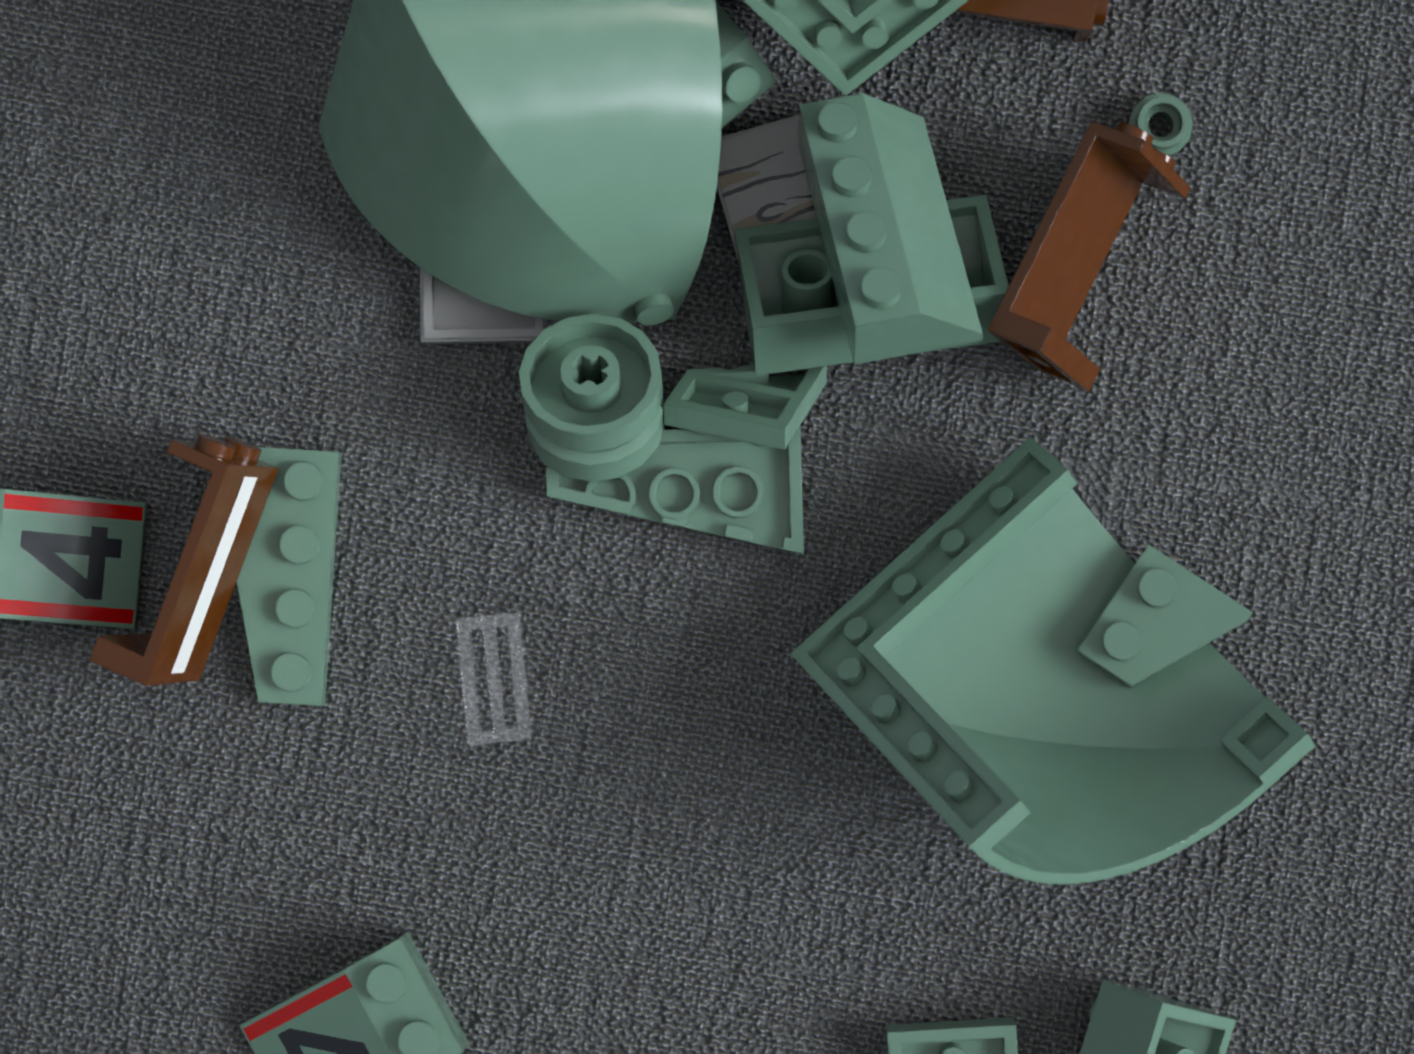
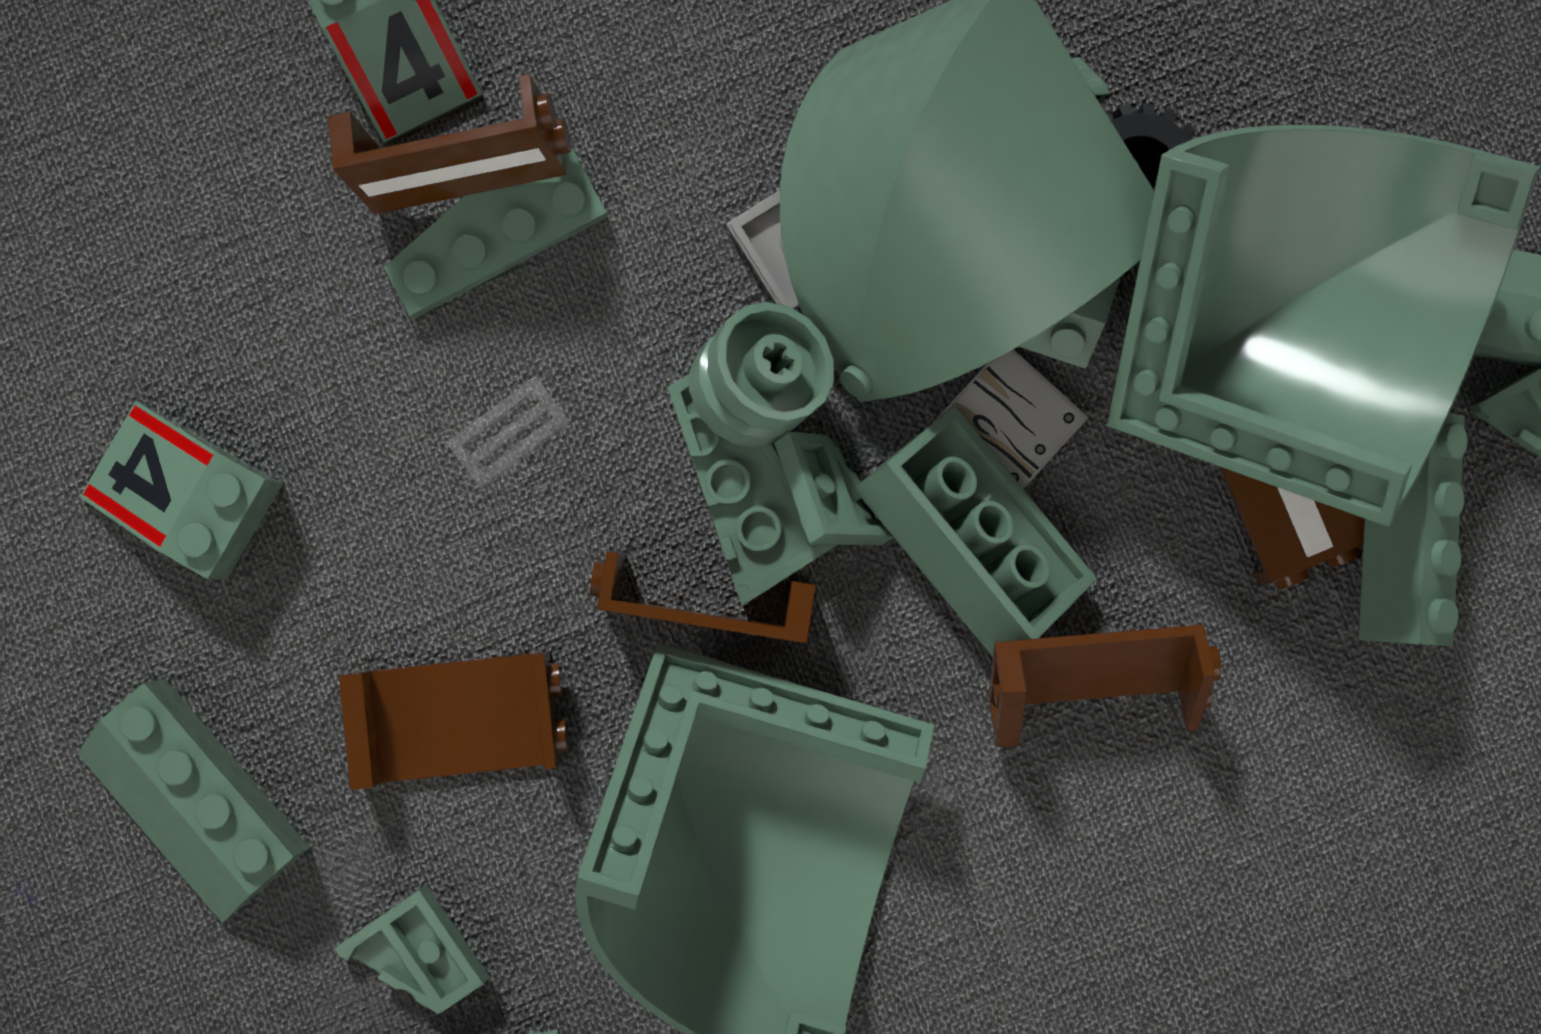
camera: 45 degrees right, 0 degrees up
(742, 899) = (452, 718): none -> reddish brown panel
(847, 507) = (607, 585): none -> reddish brown panel
(885, 228) = (1024, 518): sand green slope -> none
(1158, 620) = (856, 905): sand green wing -> none
(1174, 111) = (1246, 683): sand green plate -> none

